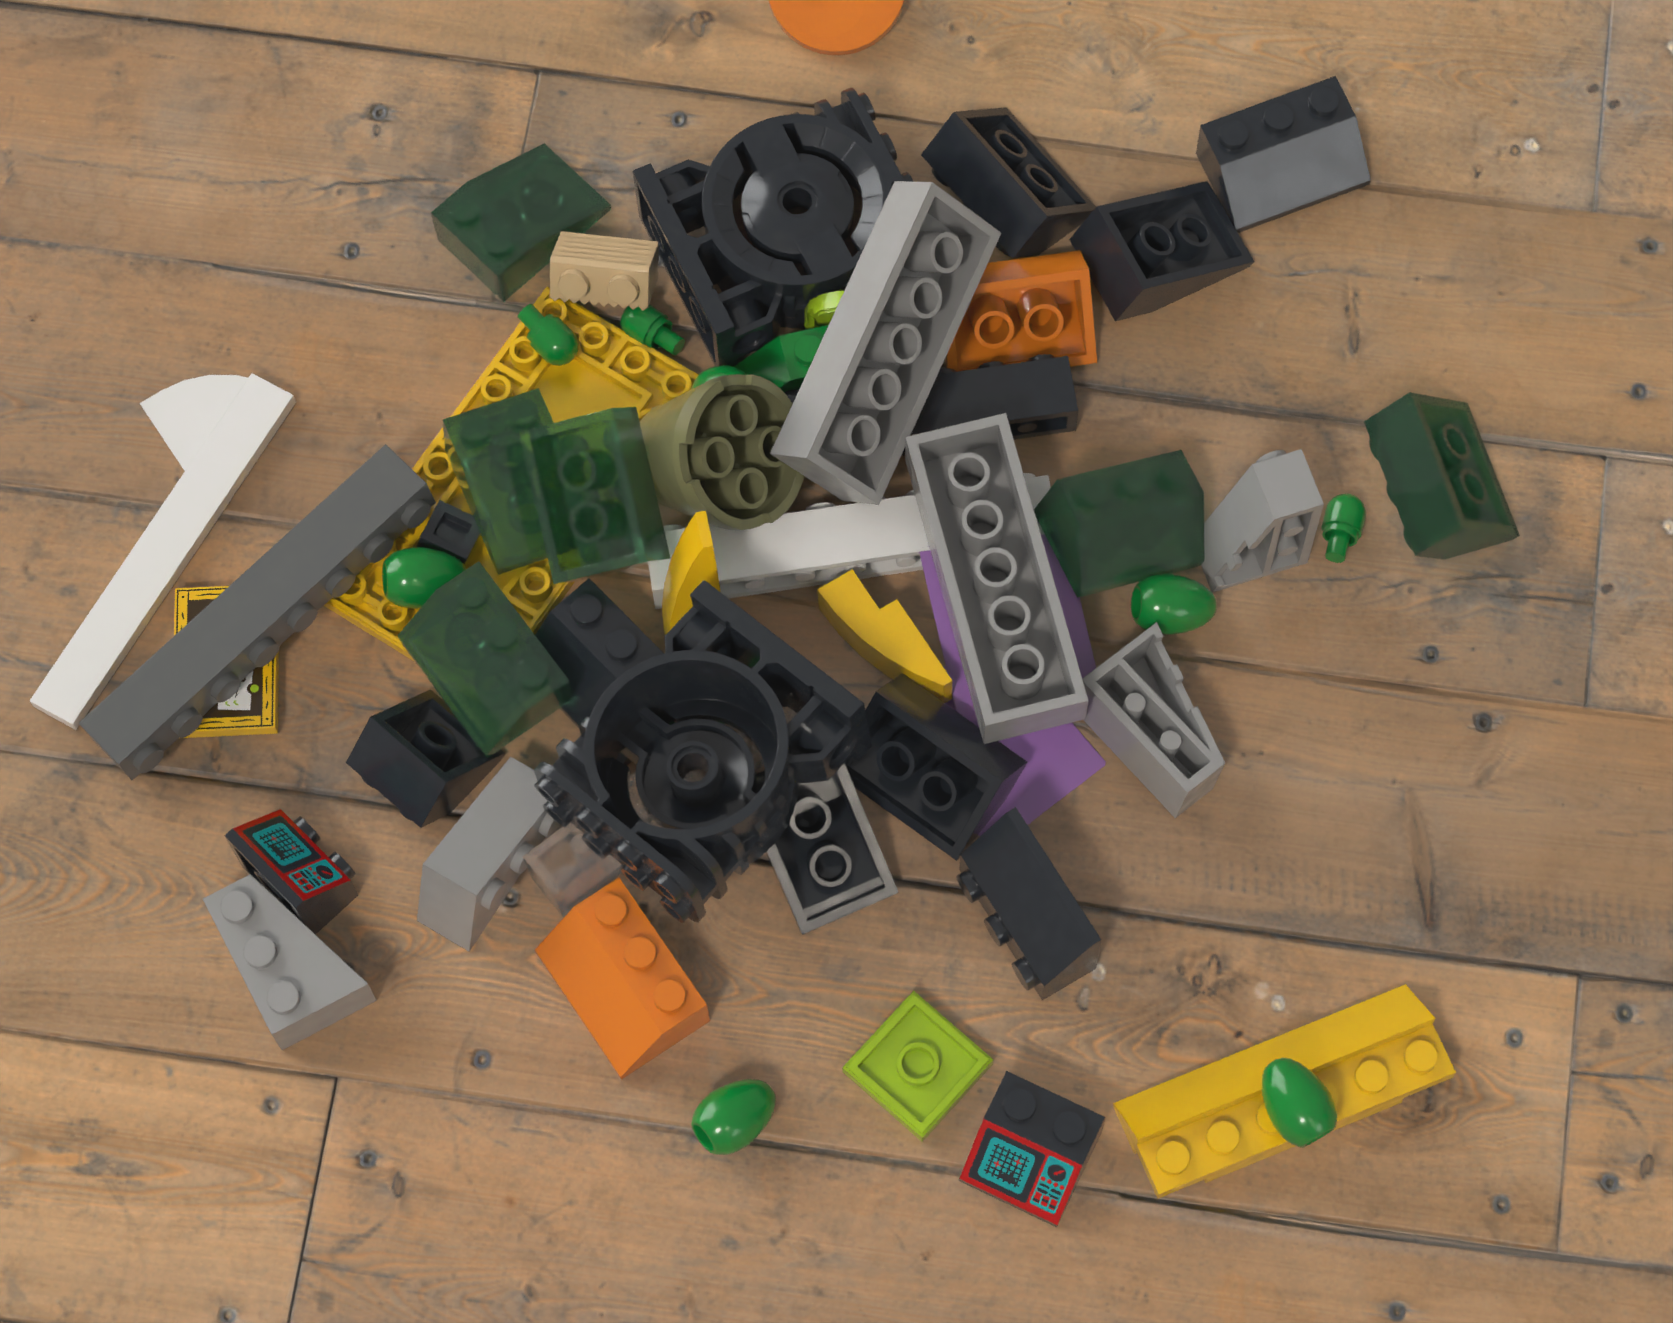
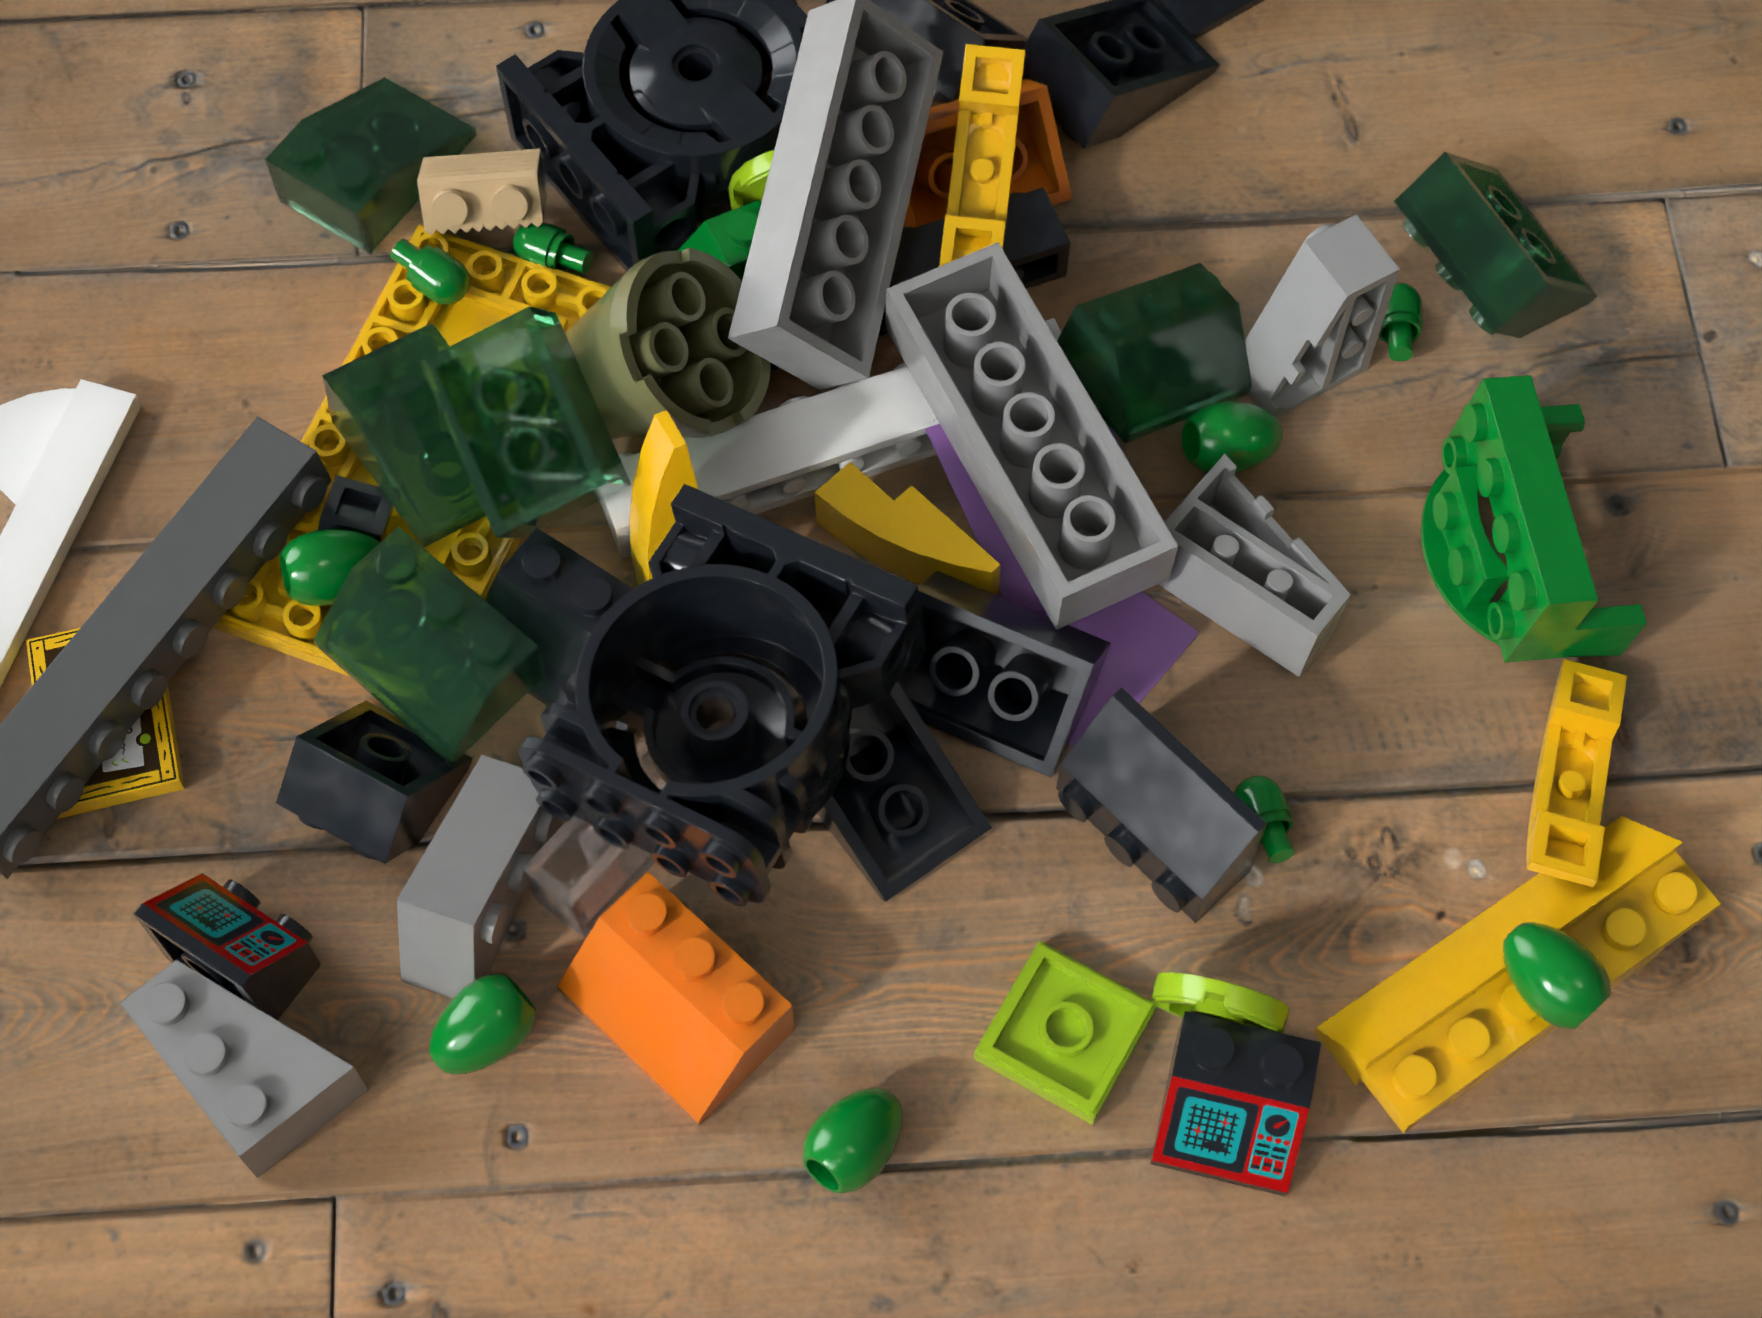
camera: 15 degrees left, 5 degrees down
(471, 969) = (481, 1025): none -> green animal
(1018, 327) = (983, 150): none -> yellow slope
(1036, 1070) = (1218, 999): none -> lime tile
(1117, 926) = (1269, 803): none -> green cylinder
(1373, 943) = (1573, 773): none -> yellow slope
(1378, 678) = (1510, 453): none -> green piece

